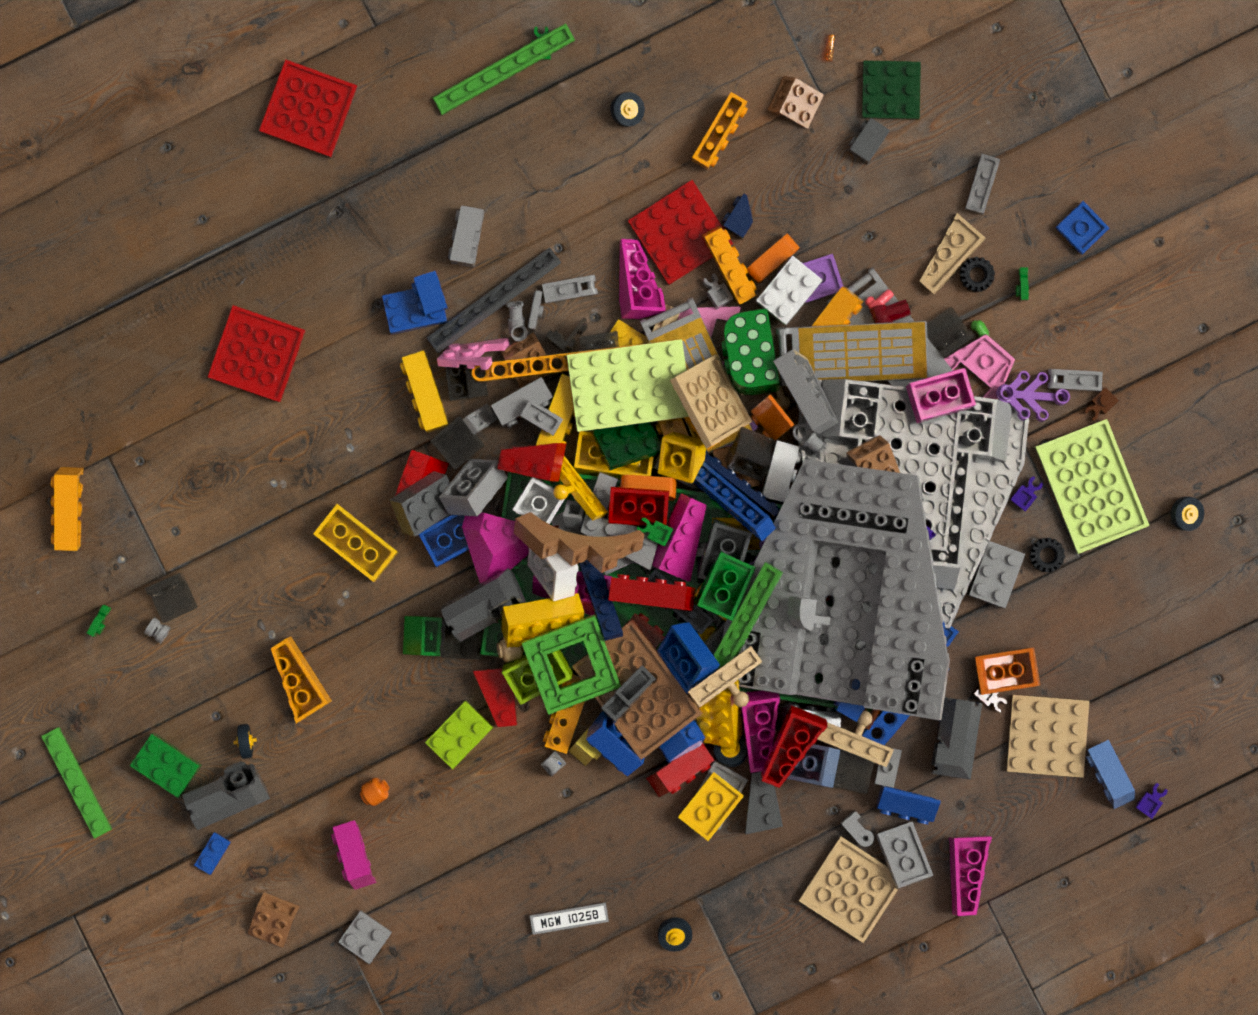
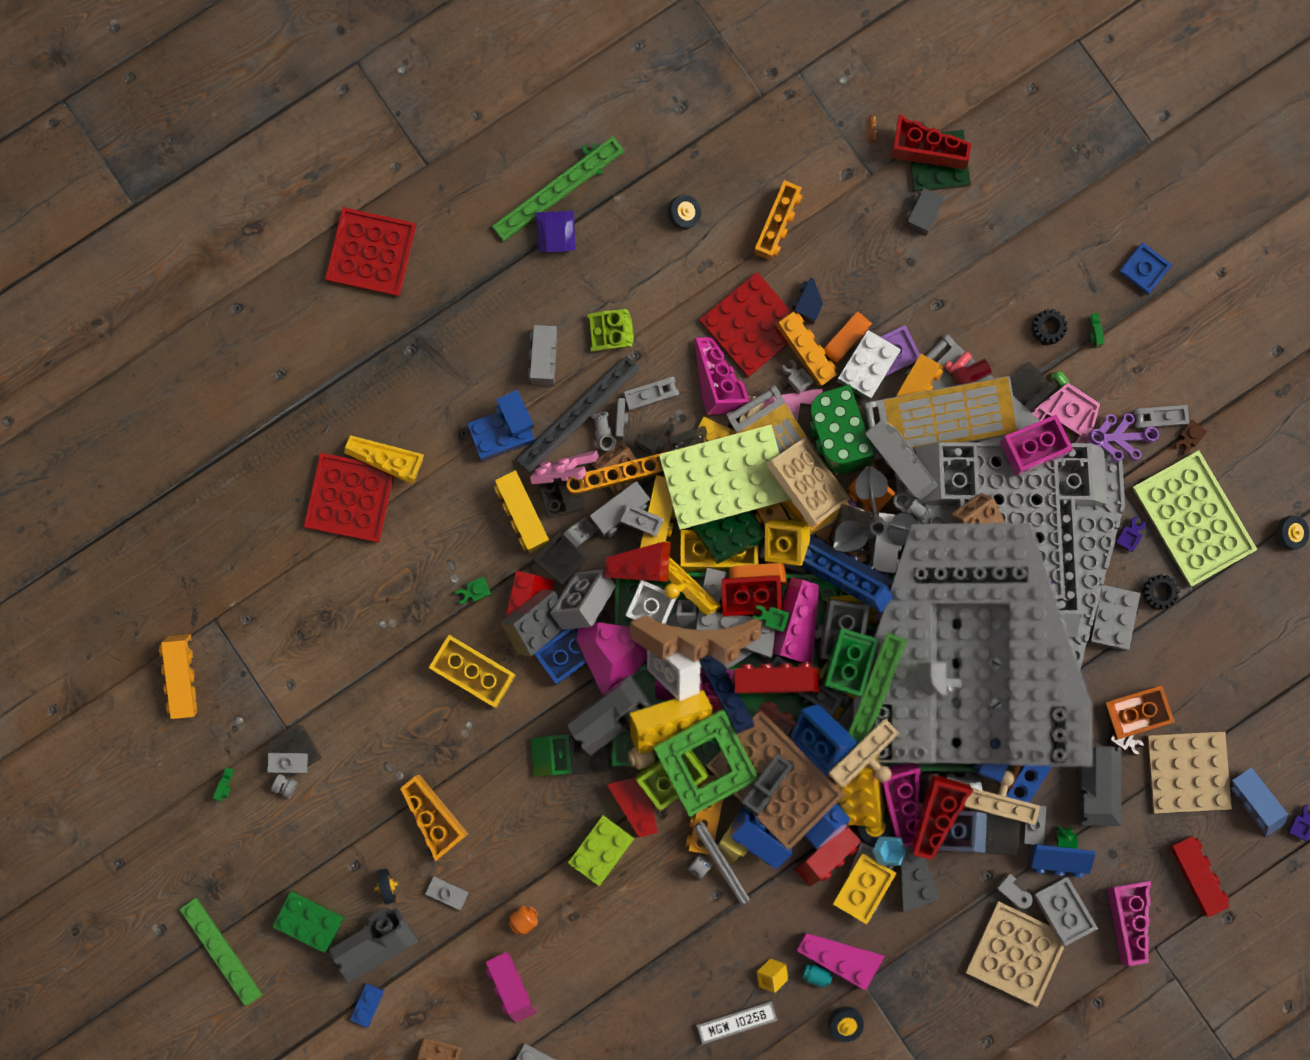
camera: 10 degrees left, 5 degrees down
(163, 608) = (287, 762): none -> light grey plate
(300, 320) = (390, 459): none -> yellow wing
(303, 755) = (447, 893): none -> light grey plate
(370, 462) = (476, 589): none -> green plate
(495, 112) = (555, 231): none -> dark purple slope
(537, 219) = (611, 330): none -> lime slope
(574, 763) = (721, 863): none -> light grey axle
(609, 878) = (772, 975): none -> yellow panel
(653, 884) = (817, 975): none -> teal brick
(683, 873) = (845, 960): none -> dark pink wedge
(739, 773) = (889, 851): none -> medium azure panel
(743, 458) = (849, 534): none -> dark grey plant
(796, 101) = (847, 182): medium nougat bracket -> none
(881, 75) = (929, 145): none -> red wedge
(915, 784) = (1066, 838): none -> green plate
(953, 251) = (1022, 308): tan wing -> none
(982, 184) = (1041, 239): flat silver plate -> none
(1041, 839) = (1199, 876): none -> red brick

